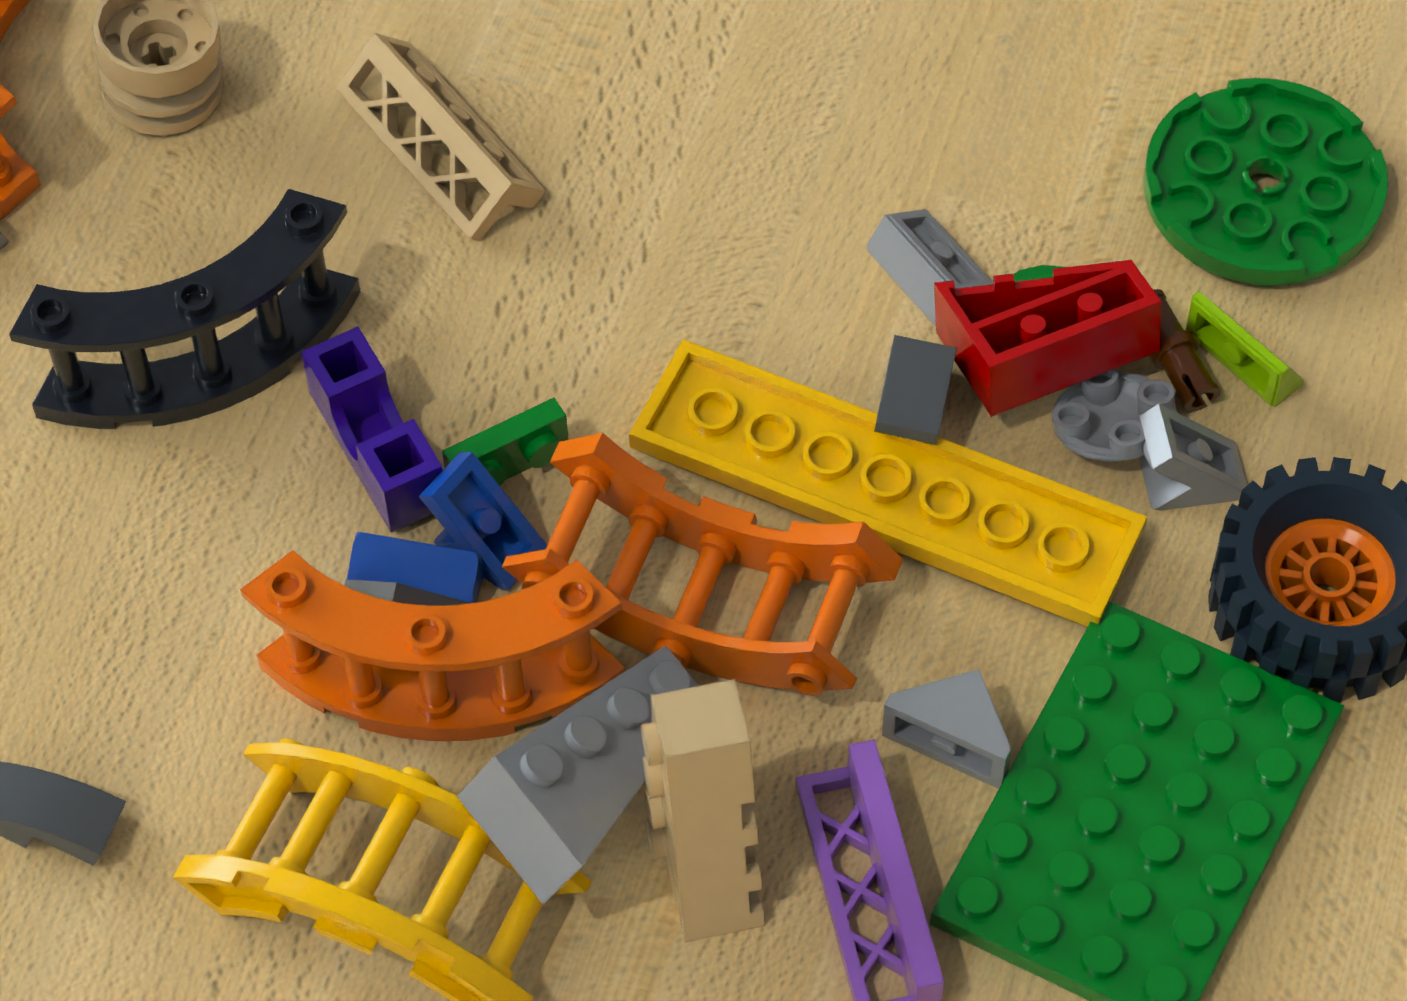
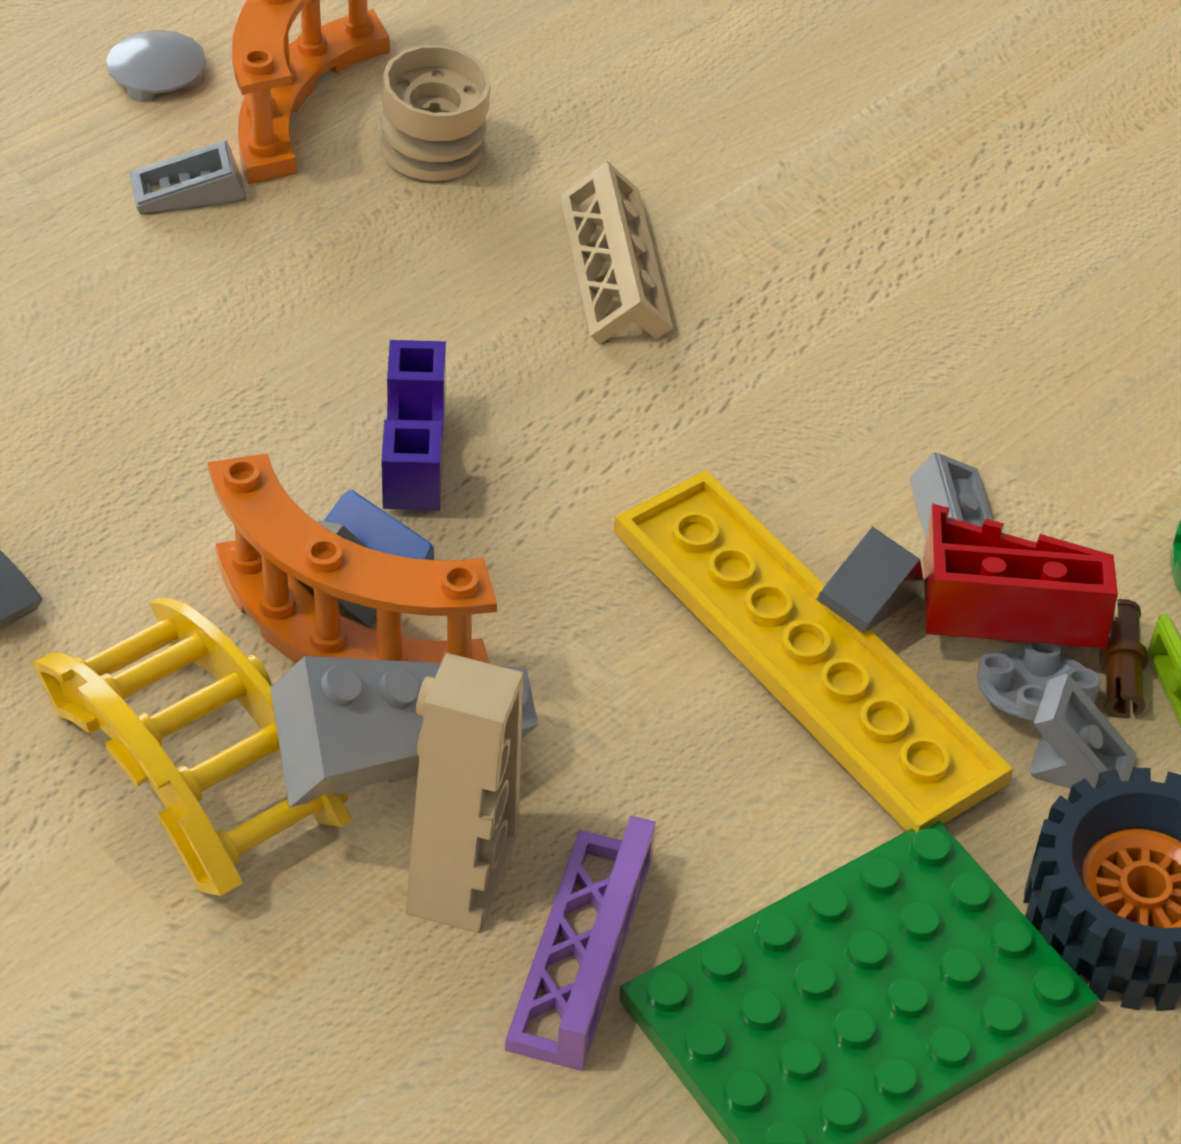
camera: 25 degrees right, 10 degrees down
(218, 372) = (322, 342): black fence -> none
(479, 517) = (452, 514): blue slope -> none
(517, 442) = (510, 487): green plate -> none
(721, 535) = (706, 665): orange fence -> none
(951, 724) = (733, 846): light grey slope -> none

